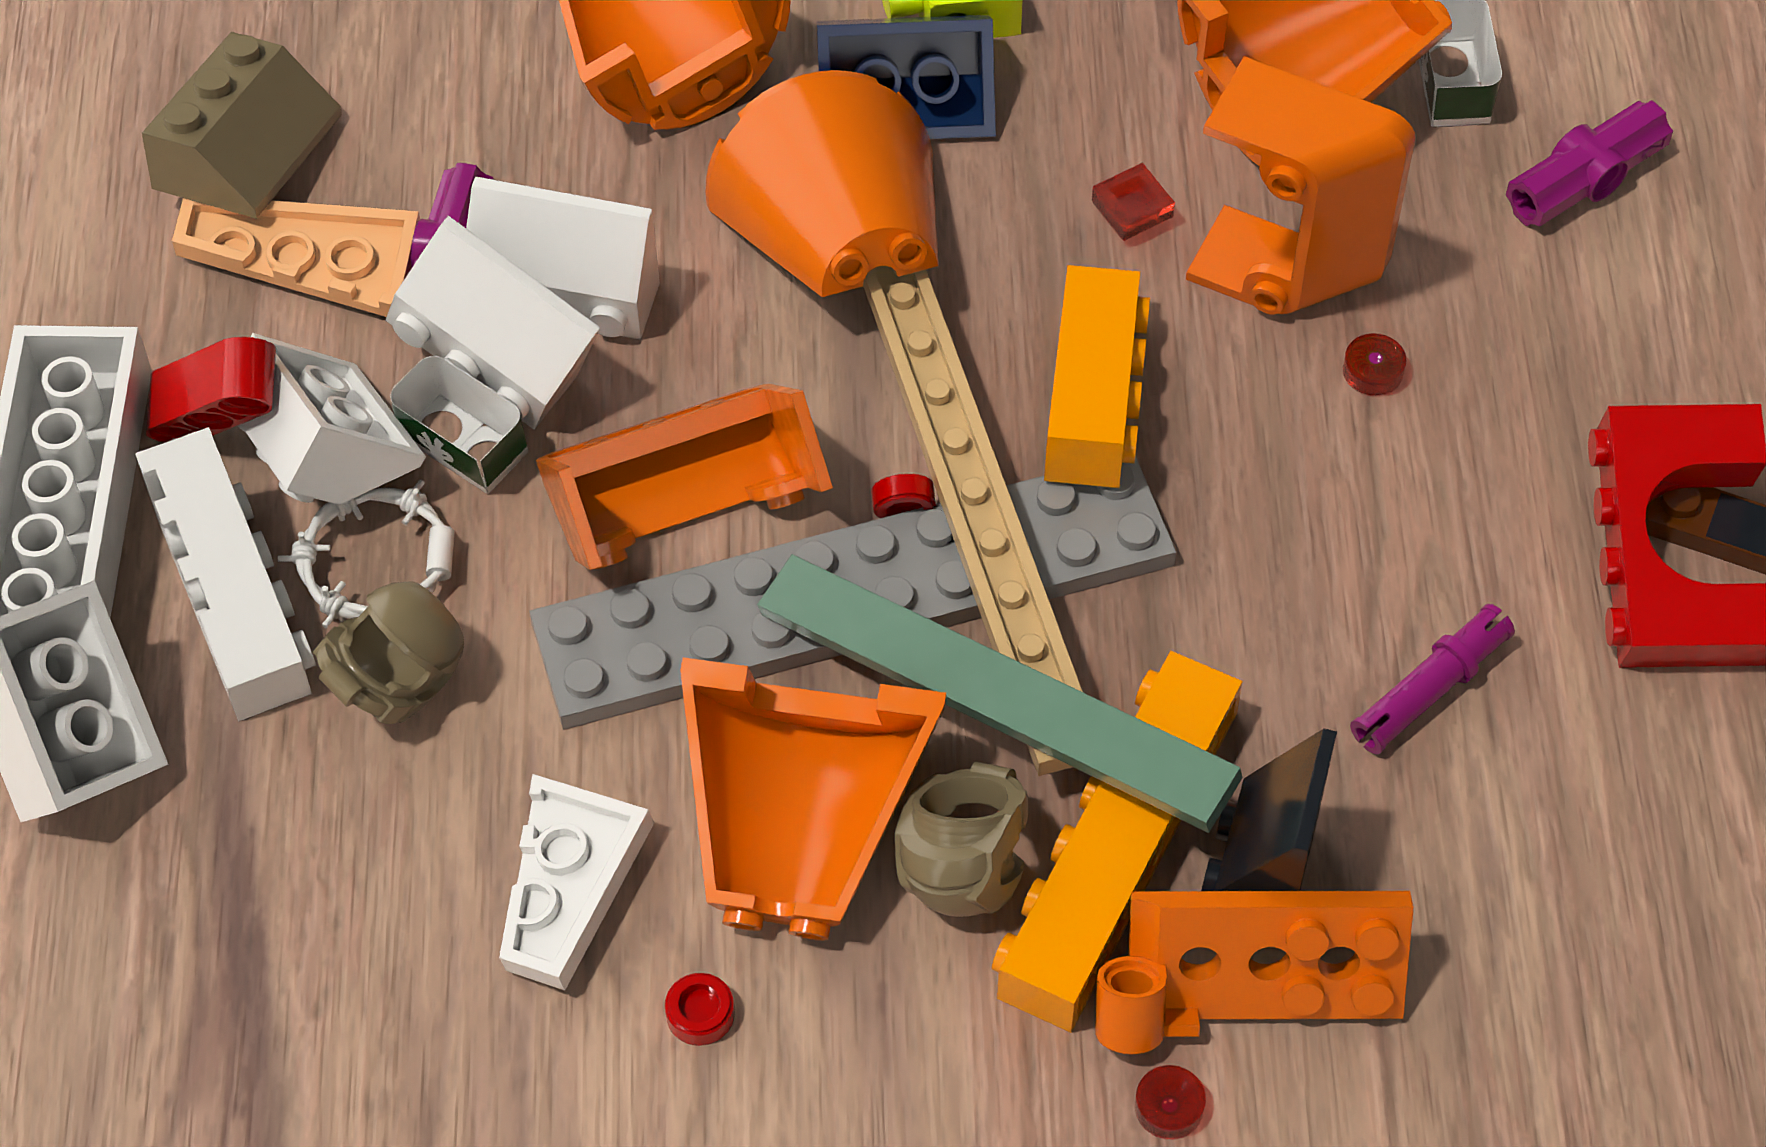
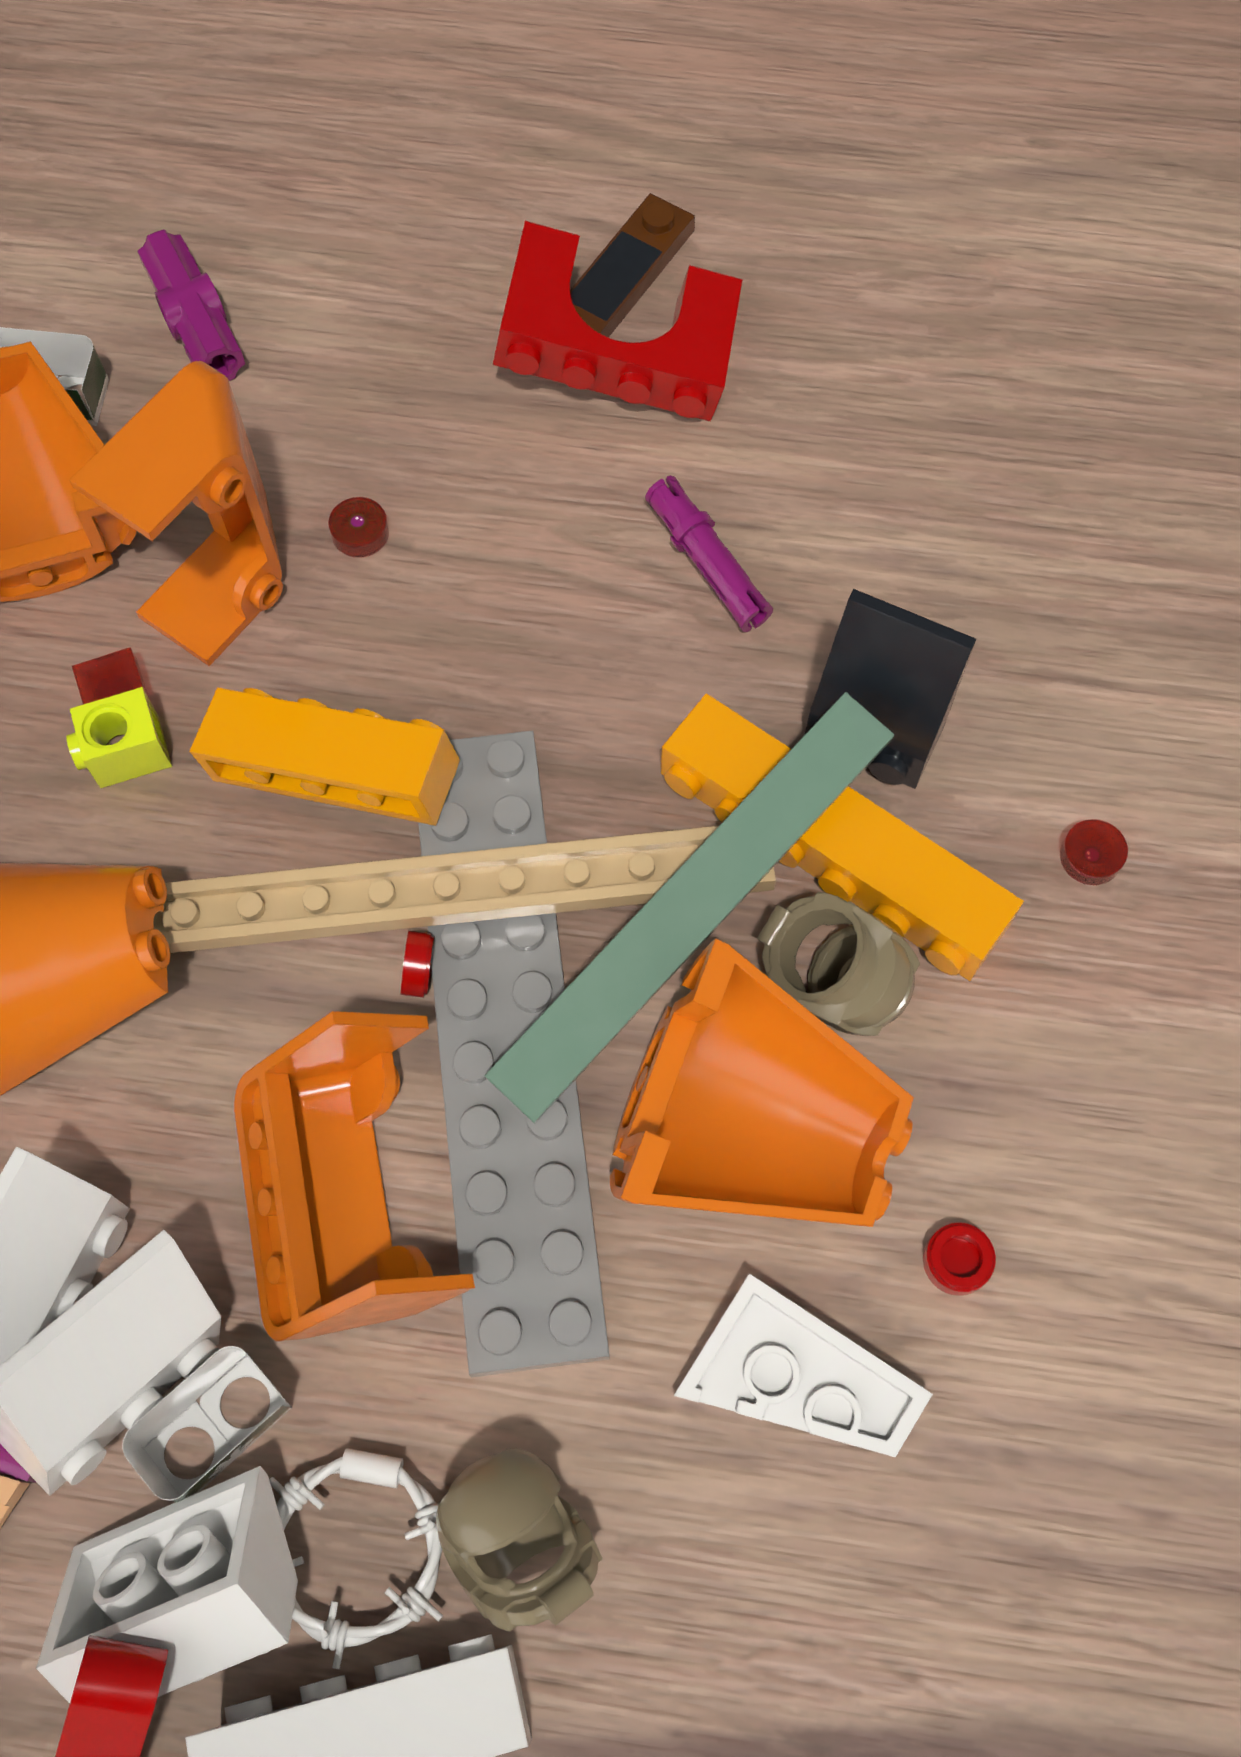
camera: 80 degrees left, 10 degrees up
(1079, 218) = (135, 755): none -> neon yellow brick
(1164, 996) = (989, 750): orange hinge -> none

